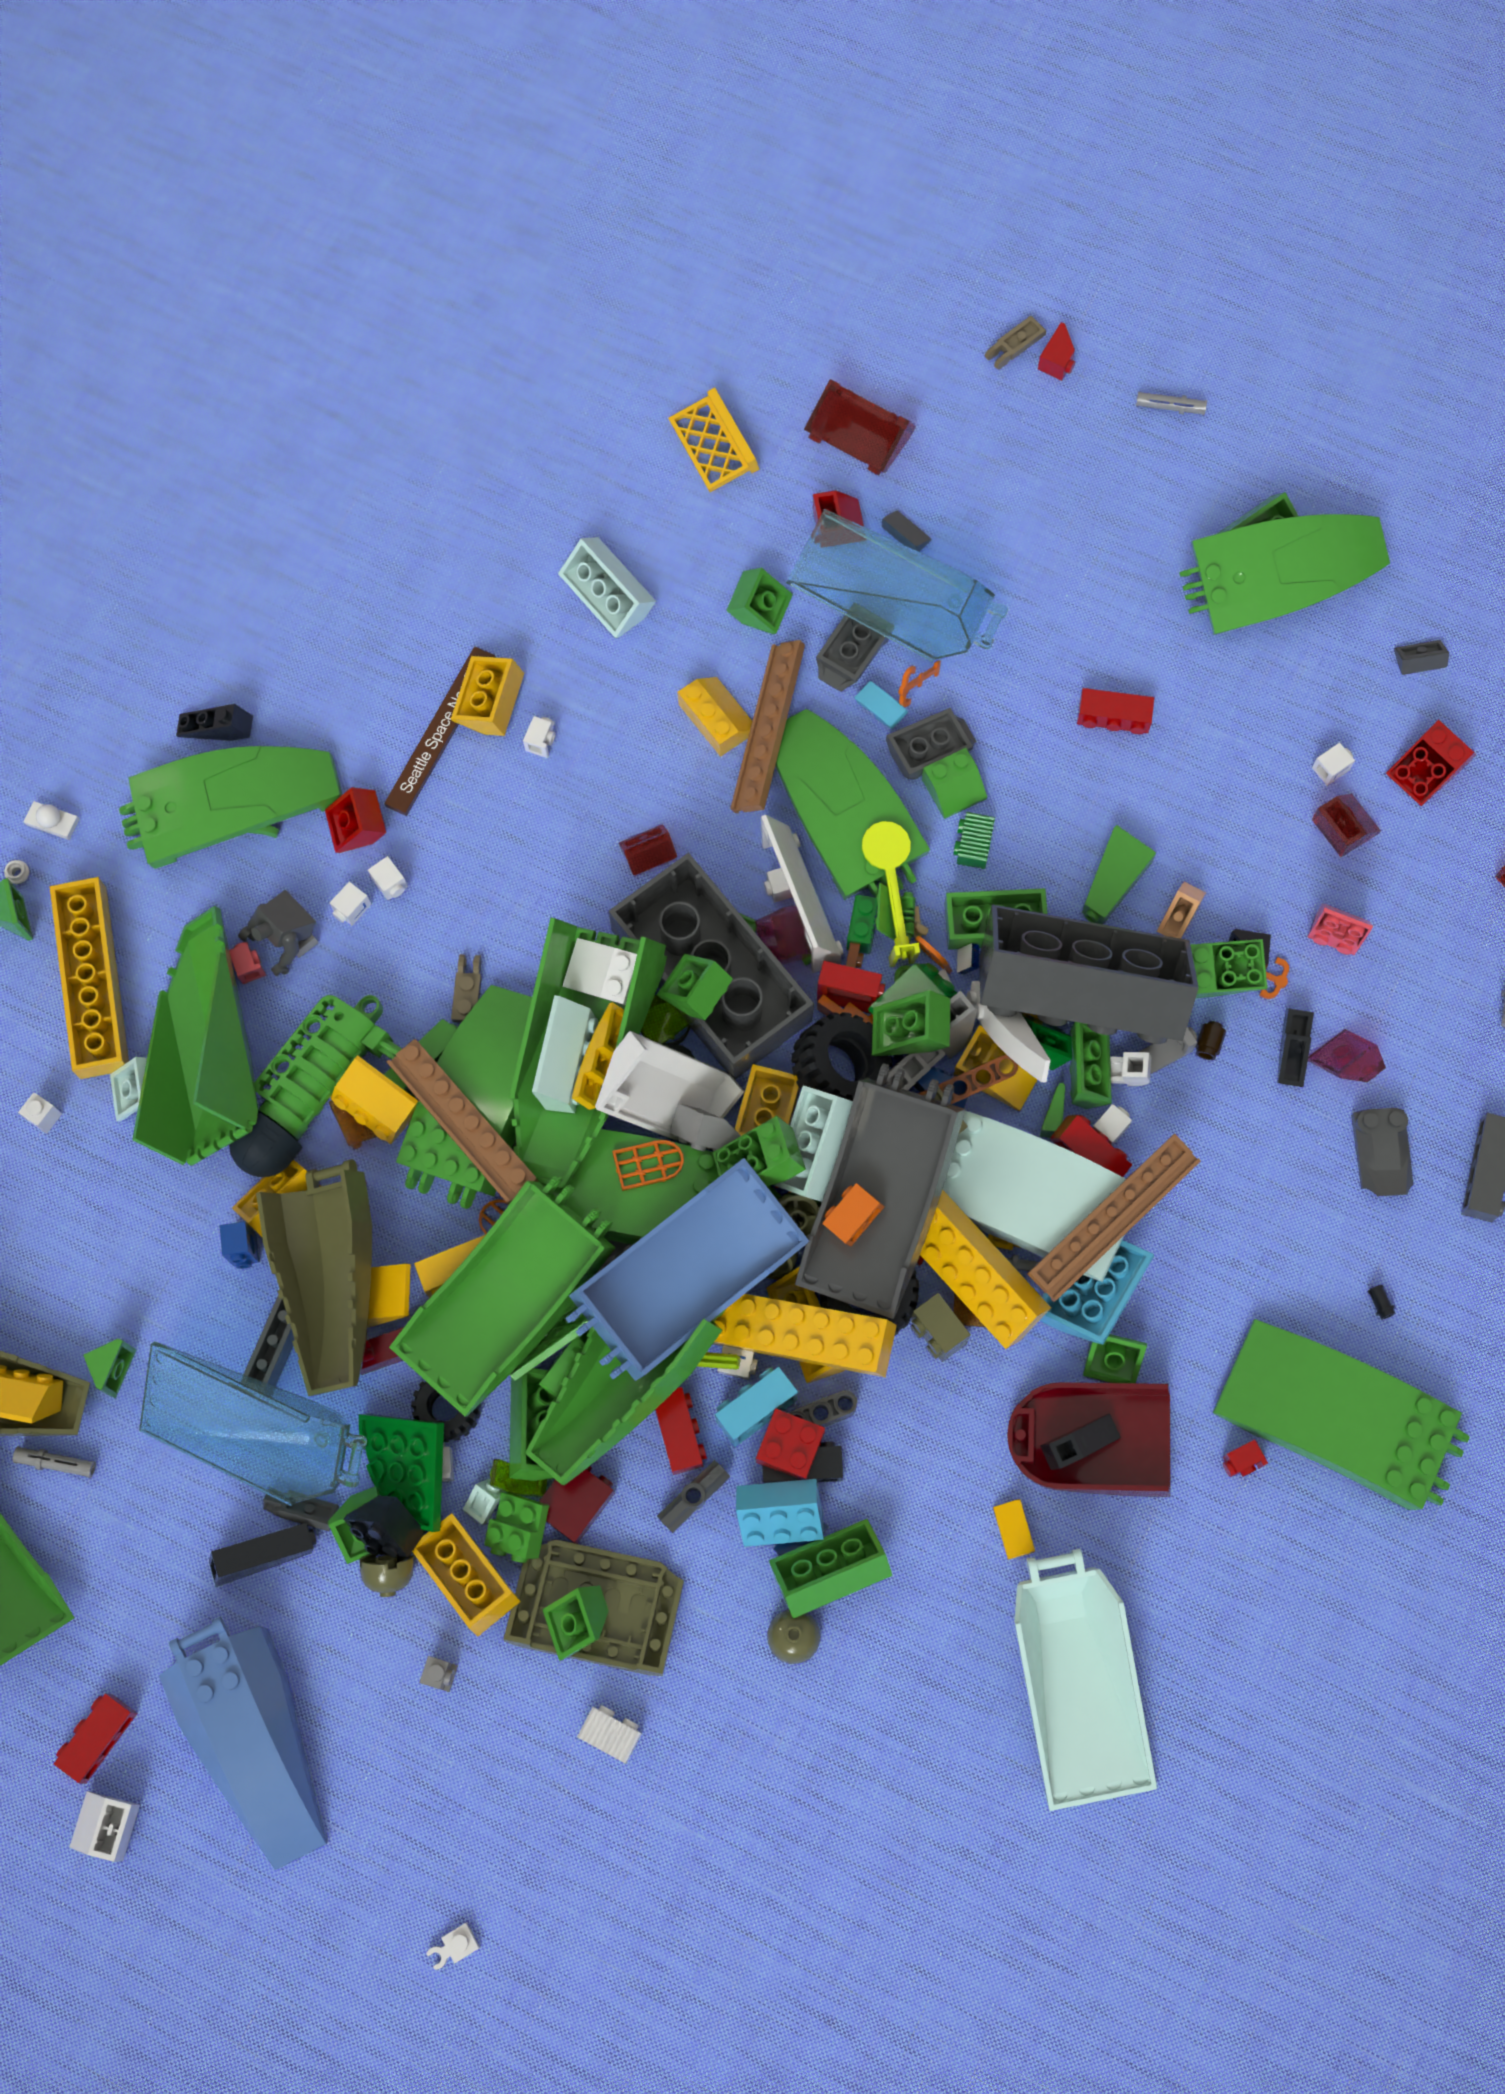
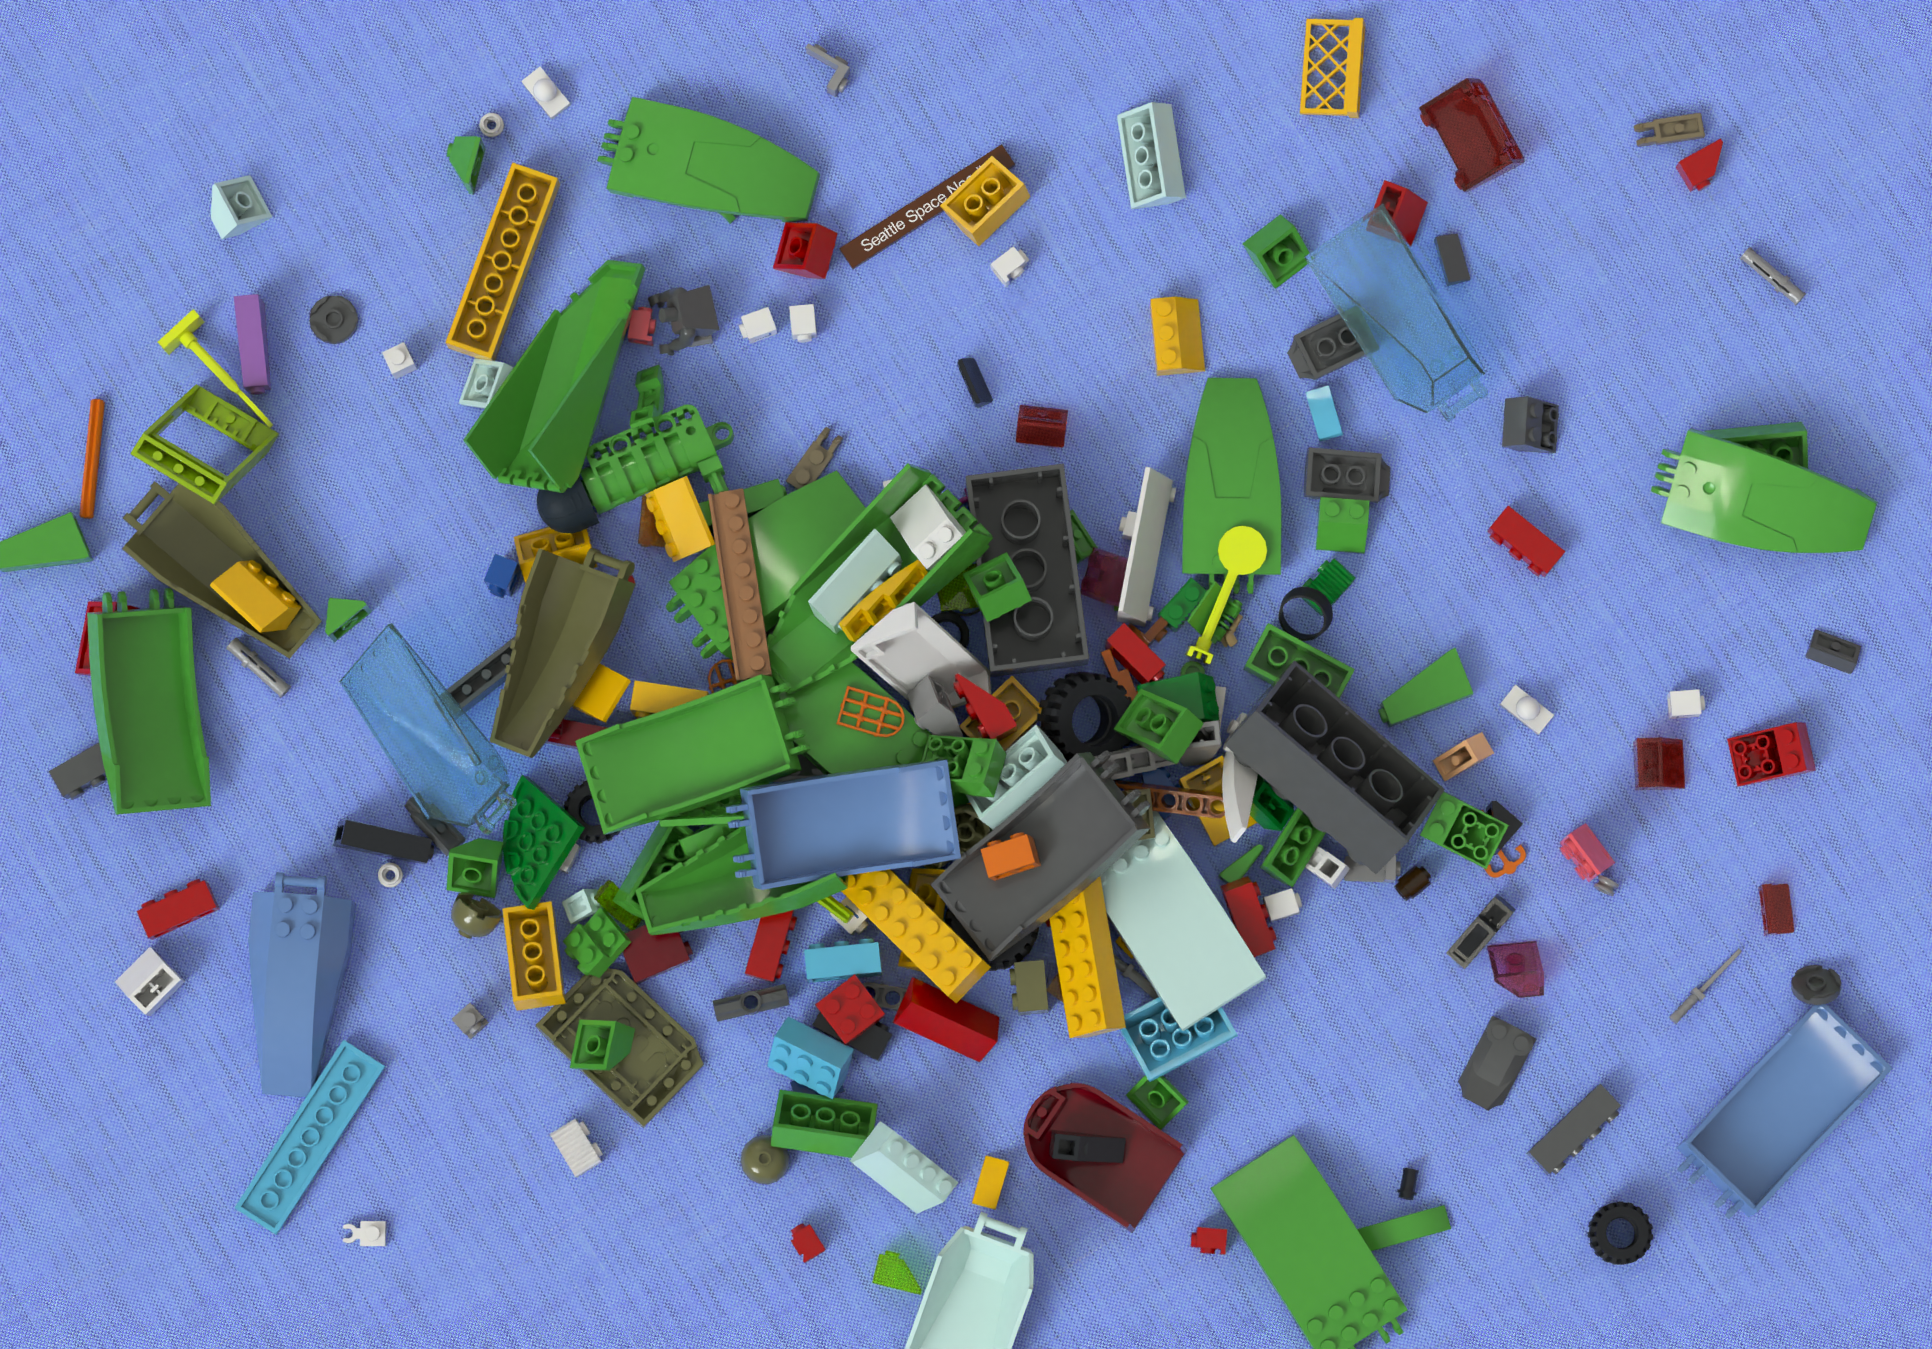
camera: 30 degrees right, 10 degrees up
(216, 723) = (734, 85): black slope -> none
(279, 1576) = (384, 869): none -> white plate
(286, 1012) = (651, 397): none -> bright green slope
(294, 659) = (839, 80): none -> light grey bracket
(345, 1886) = (310, 1137): none -> medium azure plate
(385, 1527) = (492, 881): black slope -> none
(567, 847) = (974, 381): none -> black slope
(747, 1100) = (992, 714): none -> red slope
(767, 727) = (1211, 376): medium nougat plate -> none
(880, 1690) = (806, 1242): none -> red window
(883, 1403) = (948, 1023): none -> red slope
(905, 686) = (1352, 413): orange piece -> none
(929, 1564) = (903, 1169): none -> light aqua slope
(933, 954) = (1223, 669): orange window -> none
(965, 848) = (1315, 596): none -> black tyre
(968, 958) = (1253, 689): tile -> none
(980, 1669) = (895, 1273): none -> clear neon green slope
(1056, 619) = (1530, 425): none -> dark grey slope
(1113, 1217) = (1223, 985): medium nougat plate -> none
(1207, 844) = (1526, 709): none -> white tile
(1372, 947) = (1606, 885): none -> light grey bush
(1408, 1341) = (1405, 1228): none -> bright green slope

